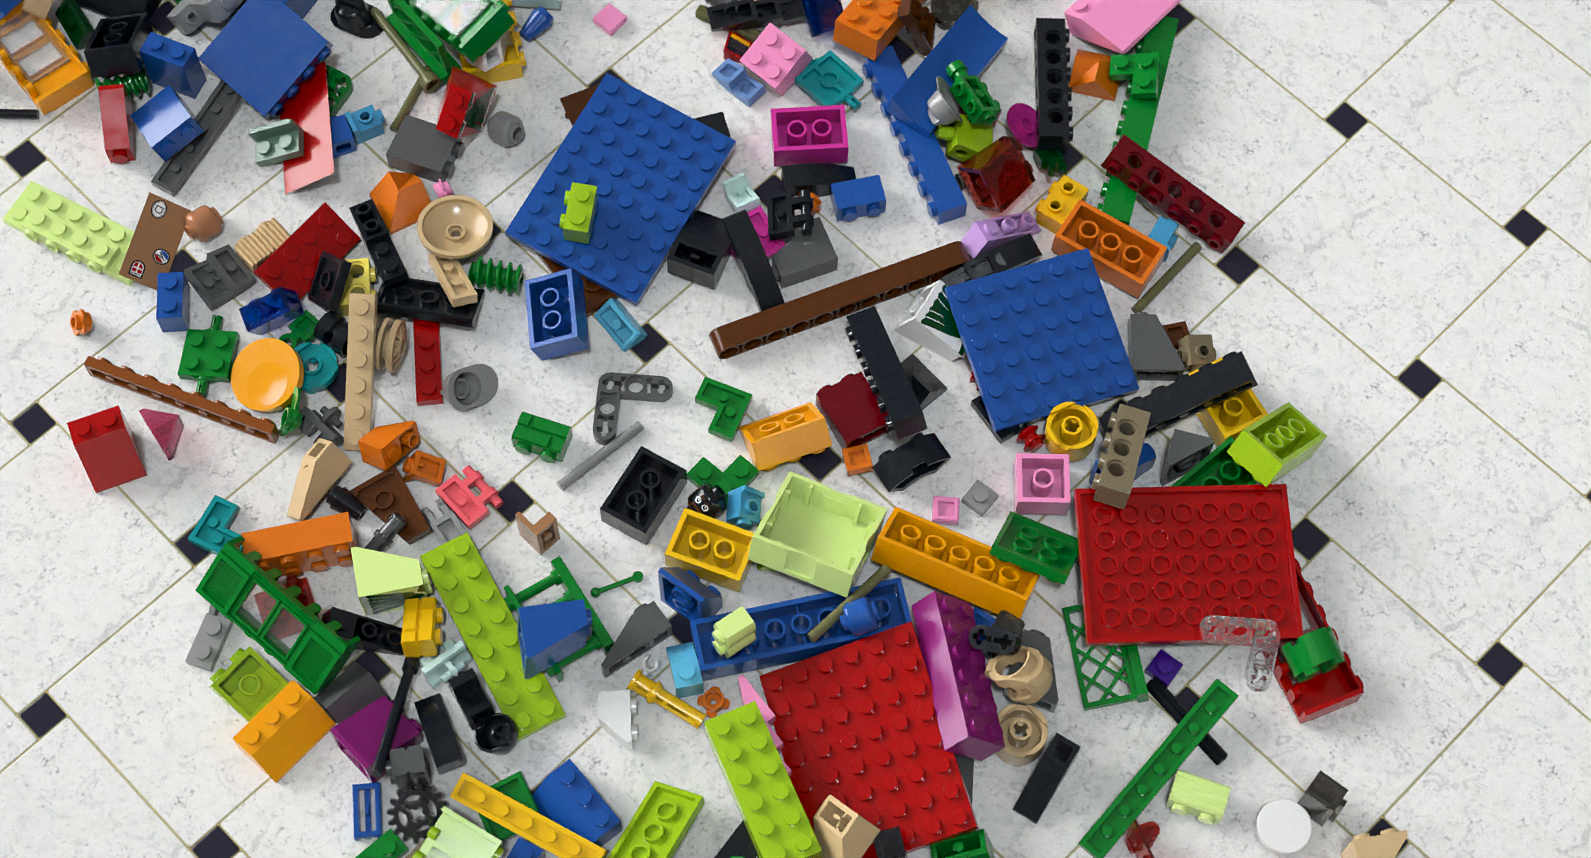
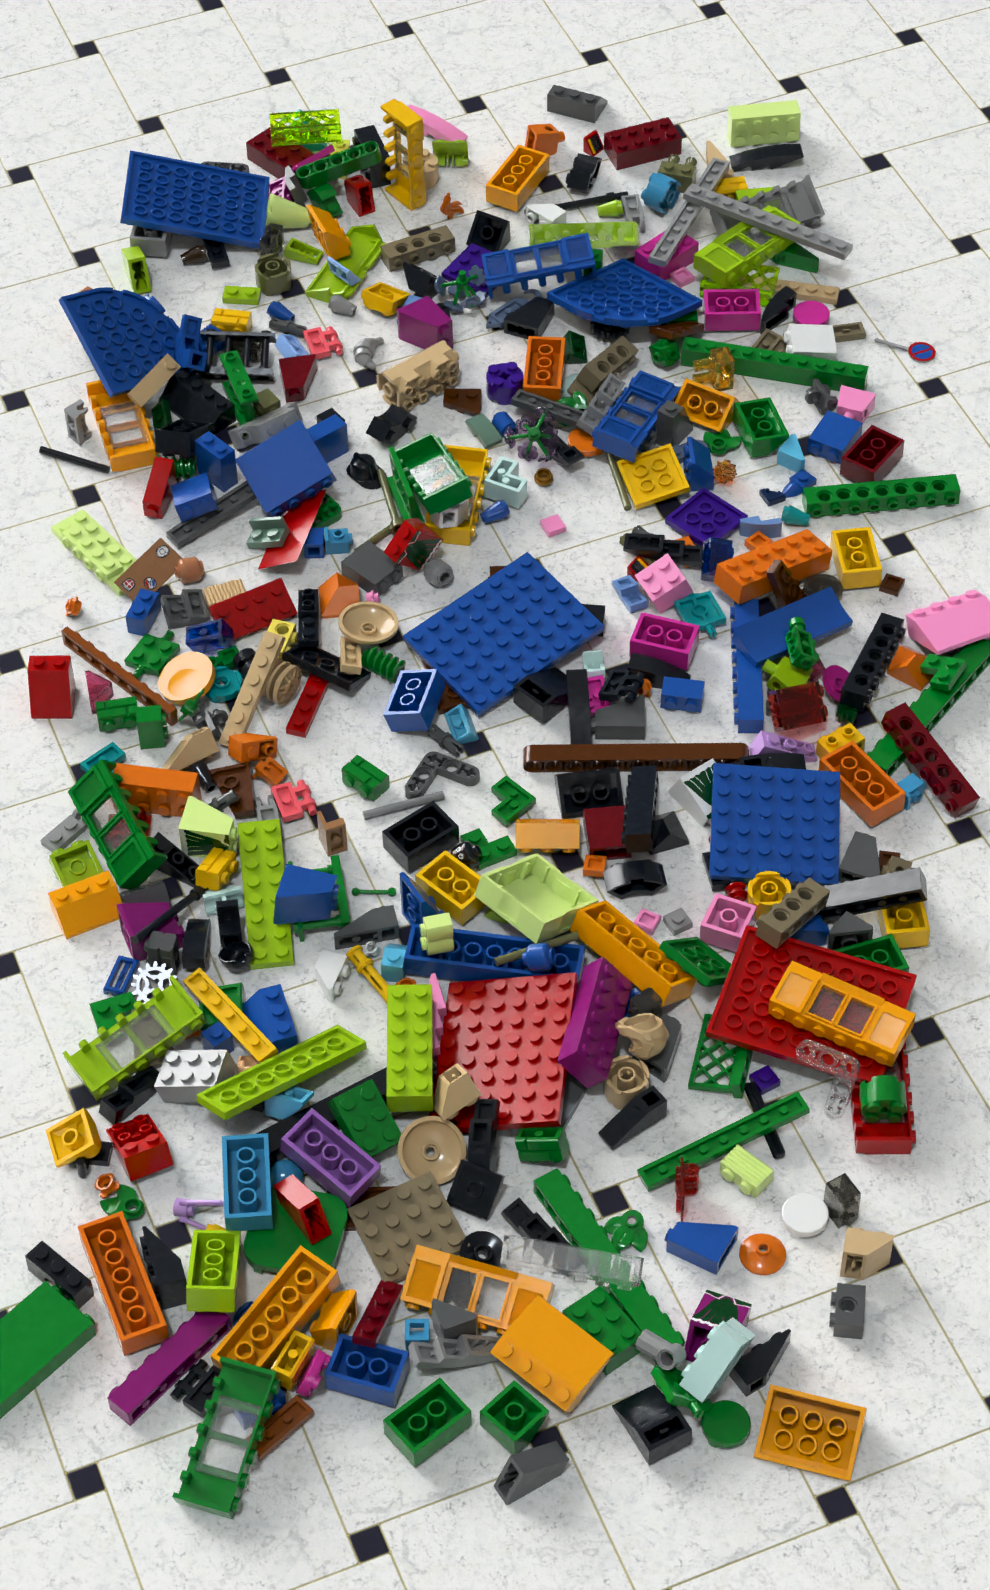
camera: 25 degrees right, 15 degrees down
(204, 453) = (116, 713): none -> green brick
(256, 460) = (151, 727): none -> green brick
(329, 281) = (256, 631): black plate -> none
(470, 386) = (329, 729): light grey piece -> none
(580, 212) = (461, 635): lime brick -> none
(613, 352) = (445, 740): none -> dark grey pin
(744, 507) = (492, 861): dark azure brick -> none
(808, 363) = (588, 790): none -> black slope
(942, 105) = (774, 643): light grey piece -> none
(995, 634) = (630, 1005): black beam -> none
(1168, 276) = (903, 820): olive bar -> none
(1231, 567) = (841, 1013): none -> light orange window
(1276, 444) = (924, 948): lime brick -> none

